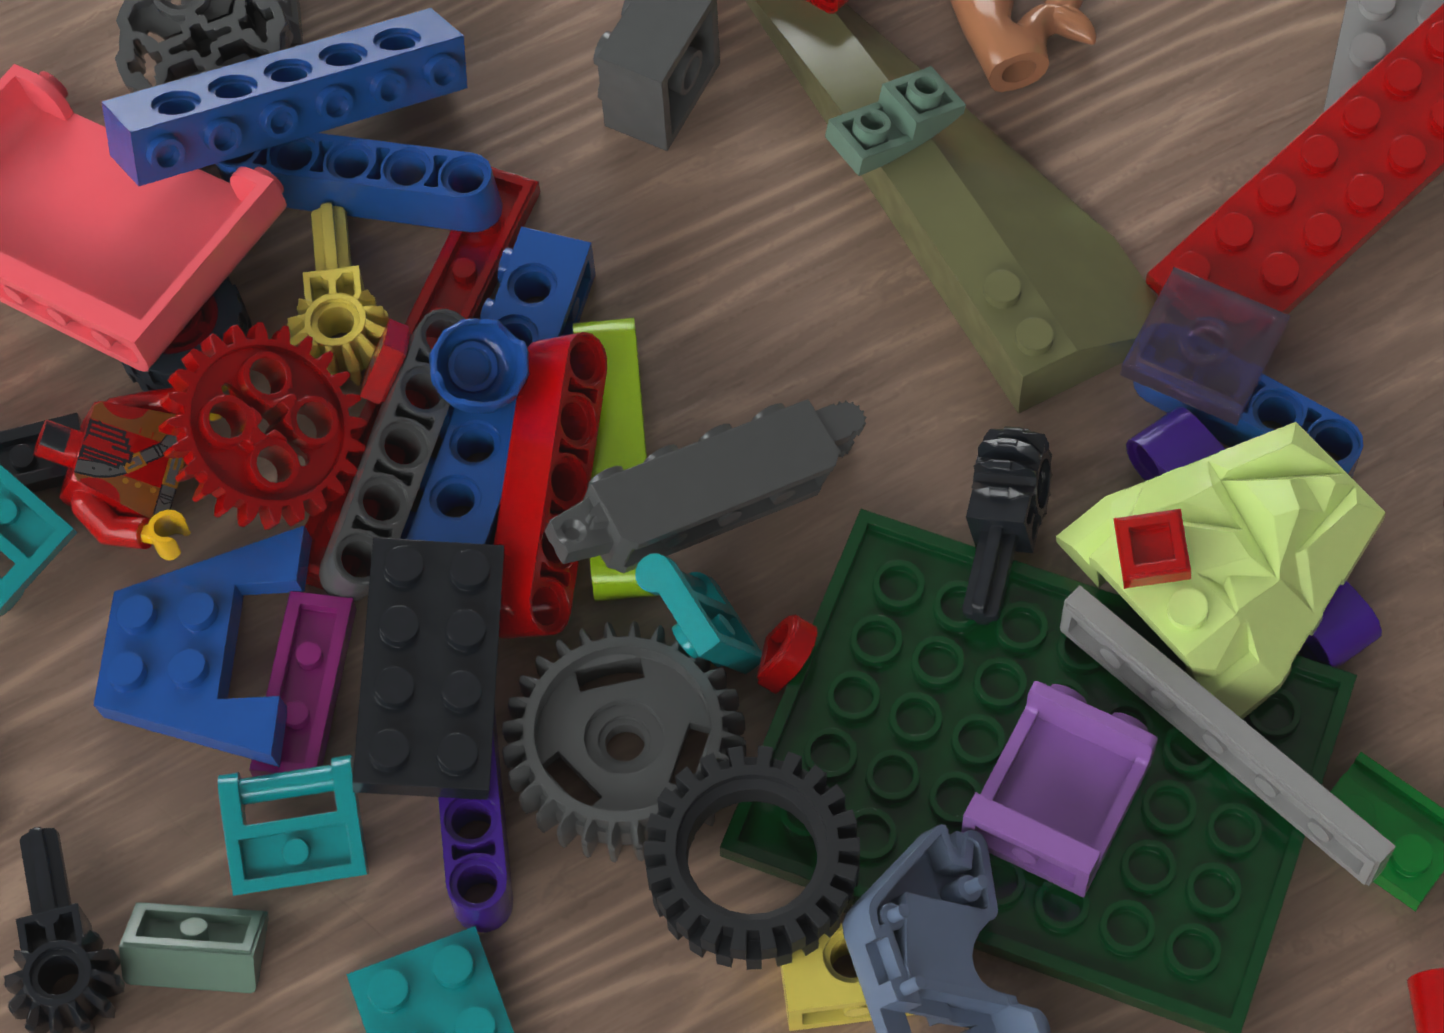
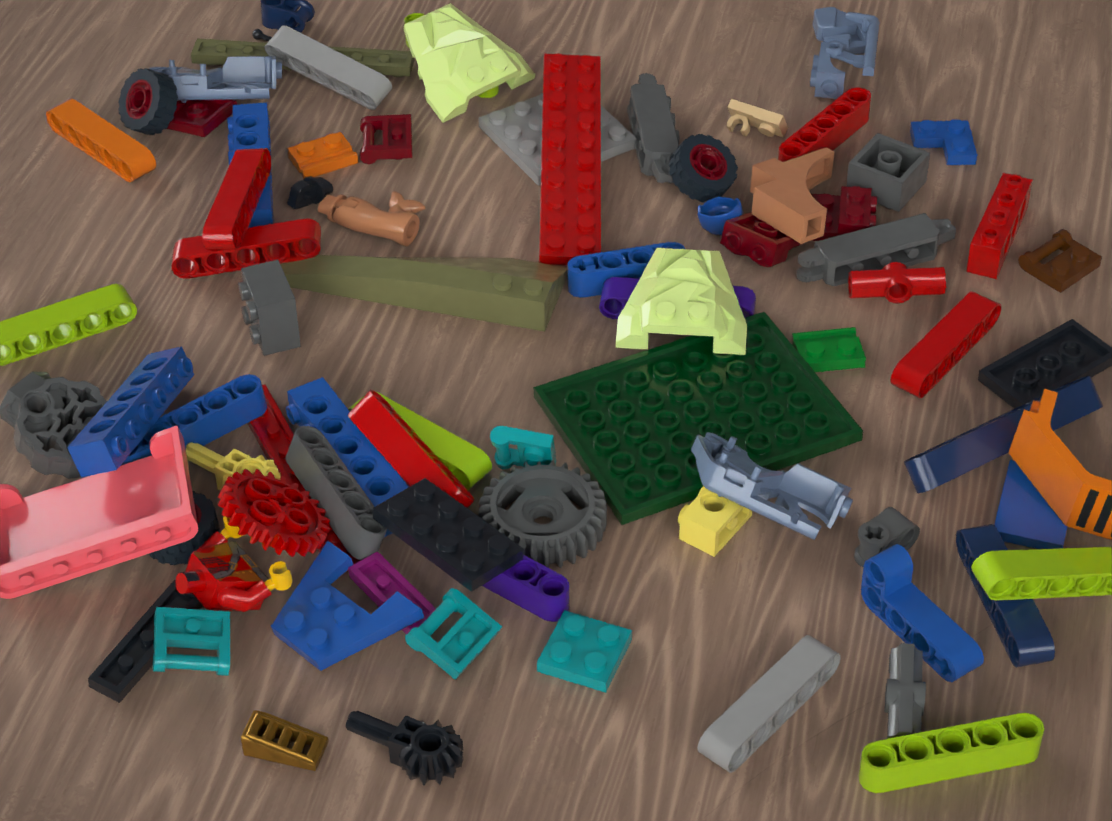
camera: 50 degrees left, 20 degrees down
(193, 947) = (465, 704): sand green slope -> none
(385, 362) = (292, 464): red tile -> none
(478, 365) = (342, 429): blue hair -> none
(706, 486) = (473, 411): dark grey hinge -> none
(759, 934) = (646, 522): black tyre -> none
(785, 652) = (567, 443): red tile -> none
(902, 119) = (394, 261): sand green slope -> none
(1004, 513) = (588, 347): black gear -> none
(1061, 787) = (716, 402): medium lavender panel -> none
(1152, 548) = (666, 300): red tile -> none
(1205, 345) = (594, 252): clear purple tile -> none
(1225, 737) = (748, 349): light grey tile -> none

